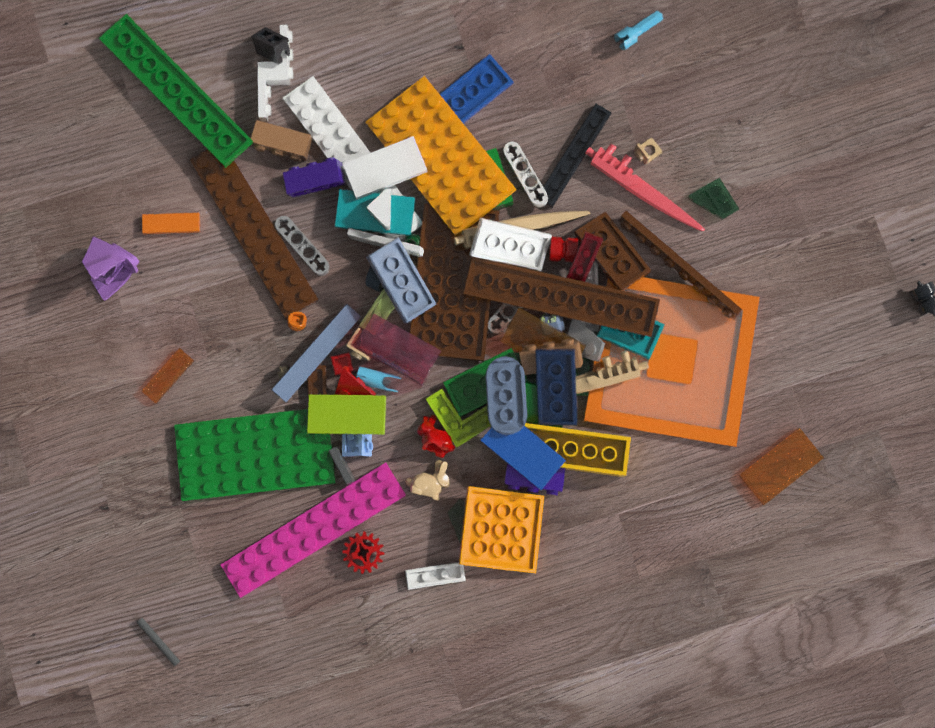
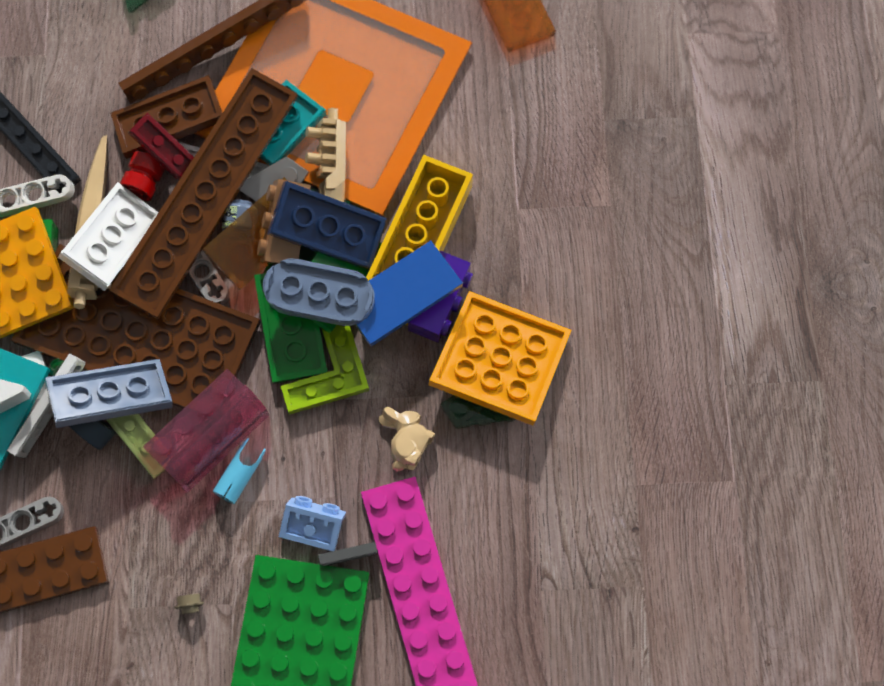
camera: 80 degrees left, 10 degrees down
(297, 321) = (116, 565): orange tile -> none
(315, 353) = (173, 549): sand blue tile -> none
(317, 382) = (219, 561): reddish brown tile -> none
(339, 361) = (200, 517): red tile -> none
(347, 414) = (276, 525): lime tile -> none
(350, 385) = (246, 508): red wing -> none
(355, 352) = (190, 491): tan bracket -> none
(355, 555) = (467, 557): red gear -> none
(434, 439) = (347, 415): red animal -> none
(435, 575) = (539, 467): white tile -> none
(623, 176) = (87, 66): coral piece -> none
(642, 155) = (49, 43): tan bracket -> none

